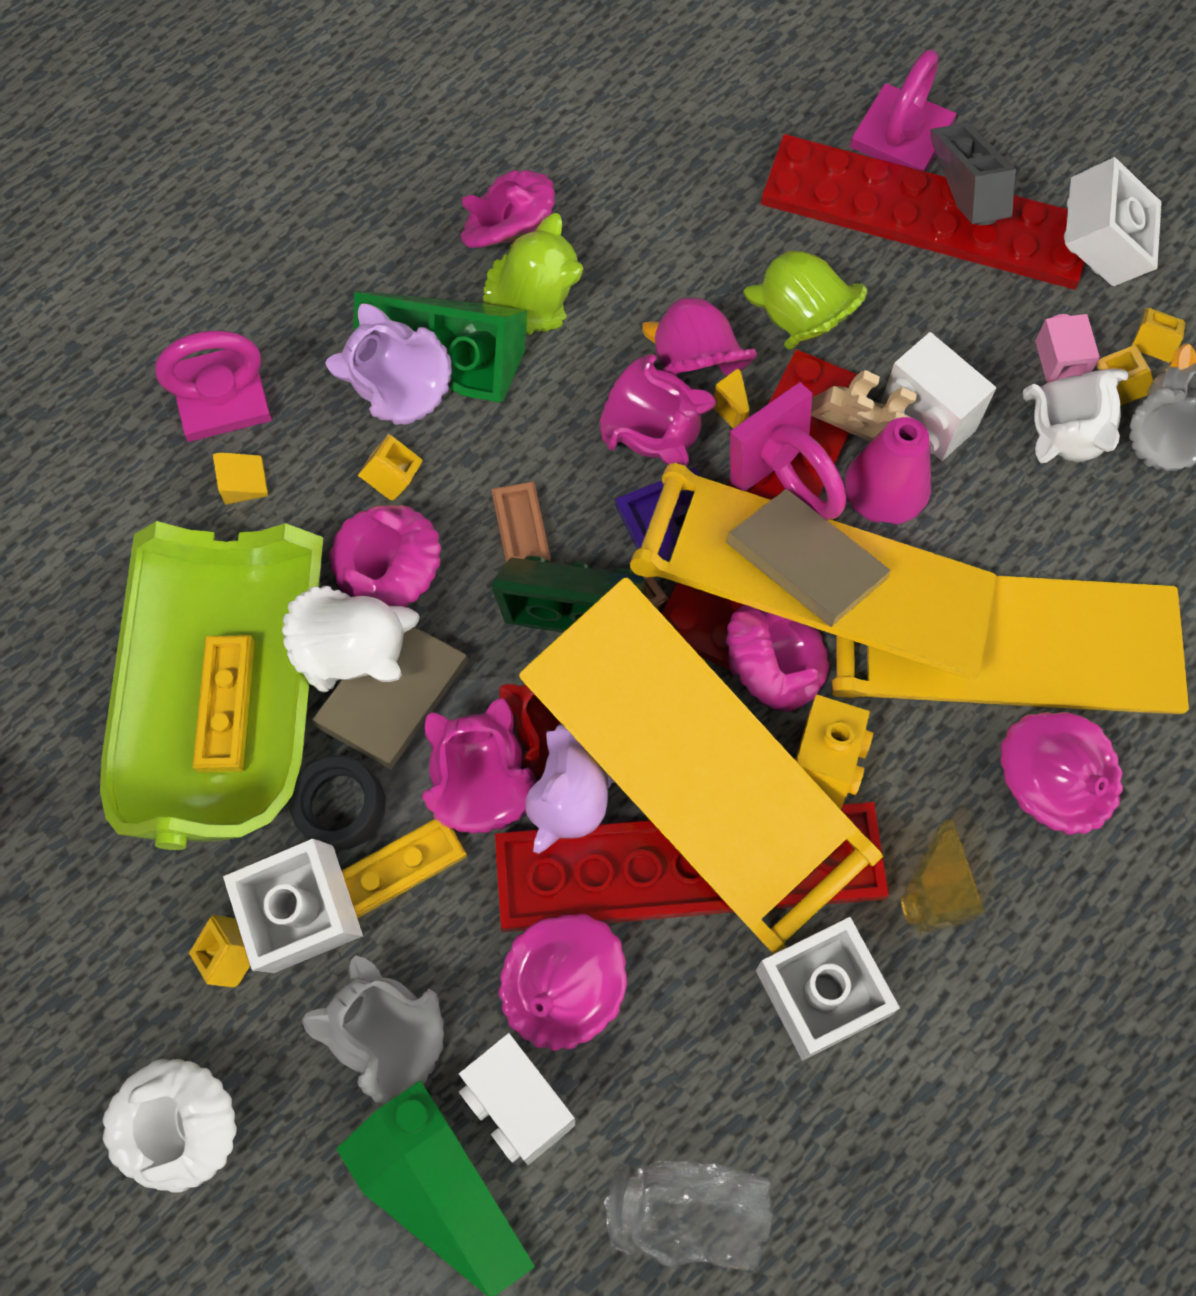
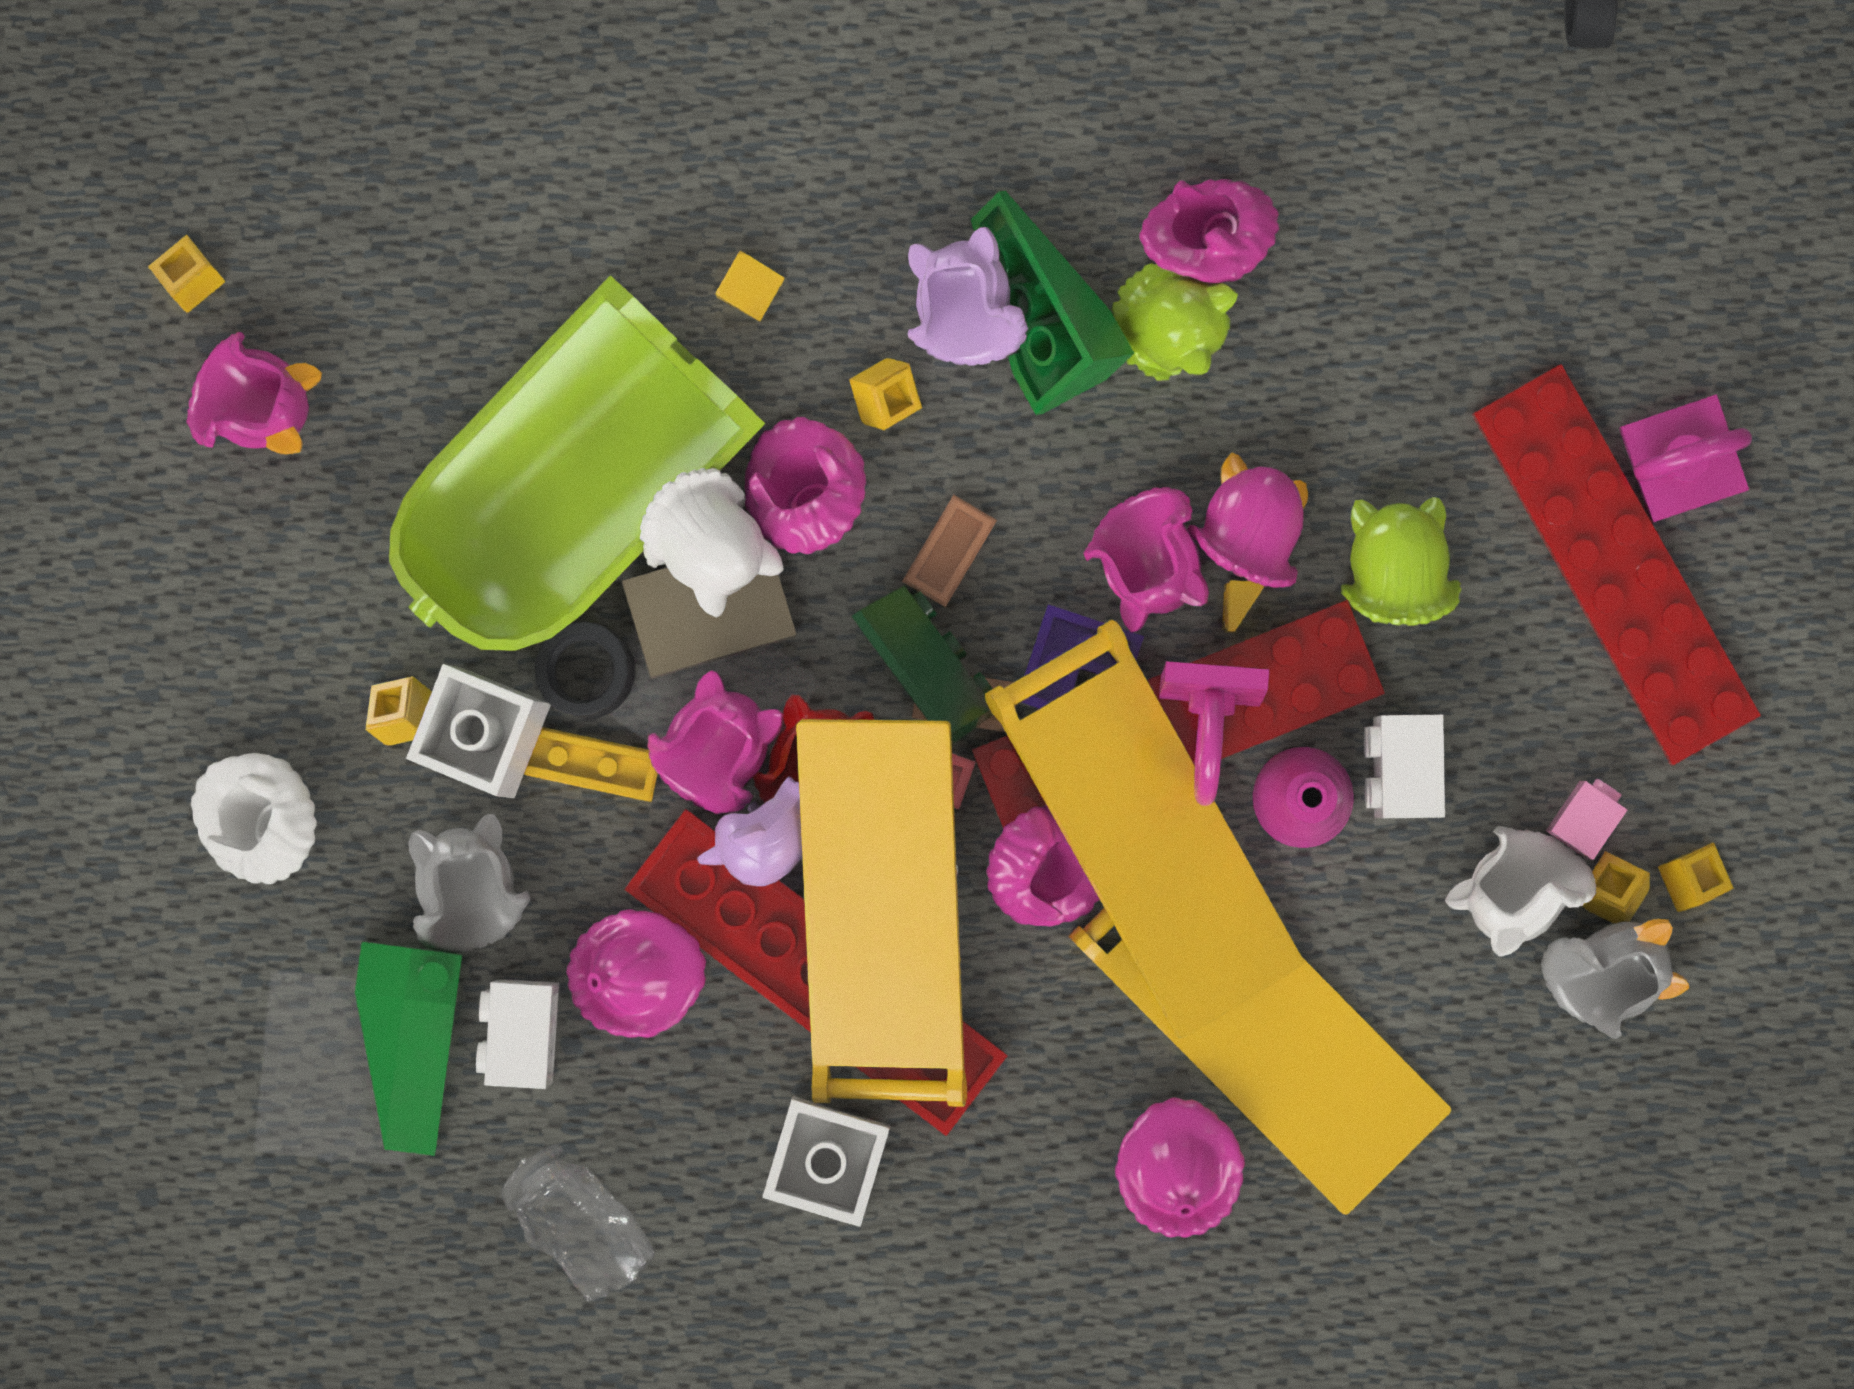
camera: 40 degrees right, 20 degrees up
(214, 389) = (800, 177): dark pink tile -> none
(224, 704) = (564, 497): yellow tile -> none
(808, 557) = (1144, 814): dark tan tile -> none
(831, 747) = (1011, 984): yellow brick -> none
(857, 414) = (1326, 723): tan plate -> none
(942, 885) = (995, 1165): clear yellow slope -> none
(975, 173) = (1677, 575): dark grey slope -> none
(1113, 222) = (1748, 746): white brick -> none

